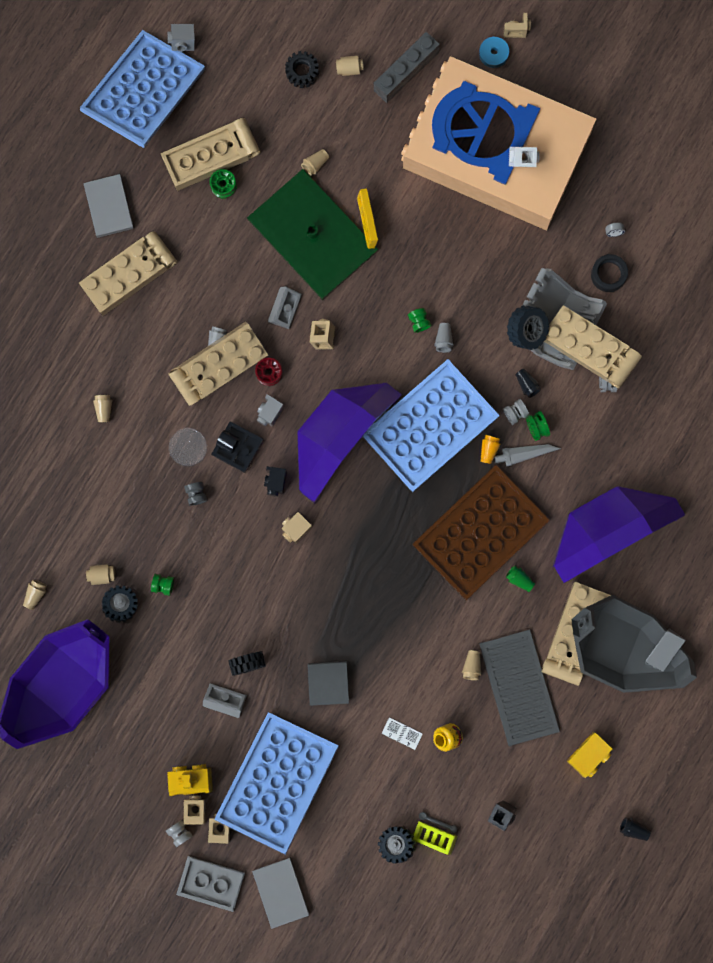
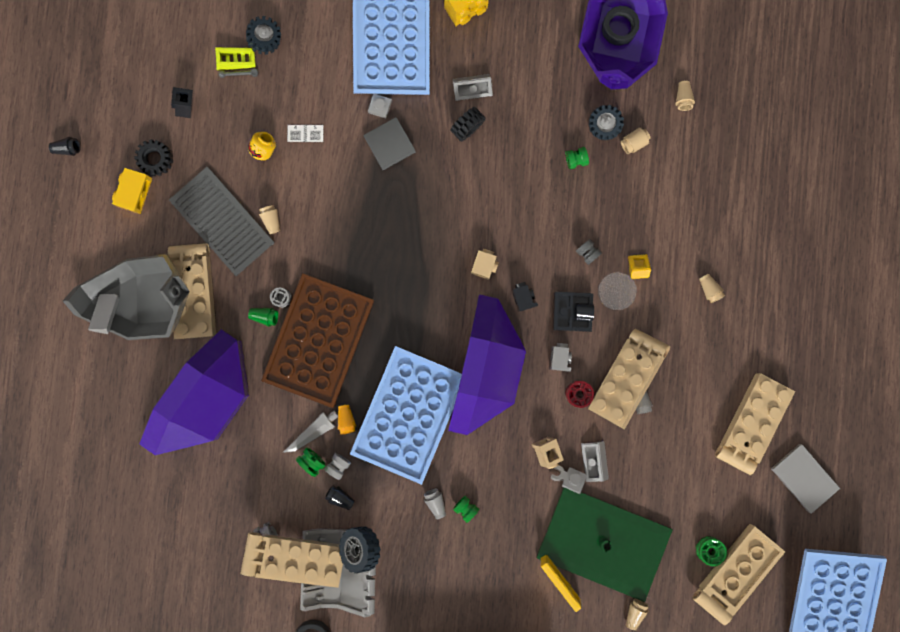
camera: 145 degrees right, 5 degrees up
(43, 689) = (627, 13): none -> black tyre
(156, 459) = (639, 266): none -> yellow slope
(312, 301) = (572, 479): none -> light grey plate
(319, 724) = (380, 106): none -> light grey plate
(496, 587) = (284, 298): none -> light grey wheel
(542, 777) = (145, 150): none -> black tyre

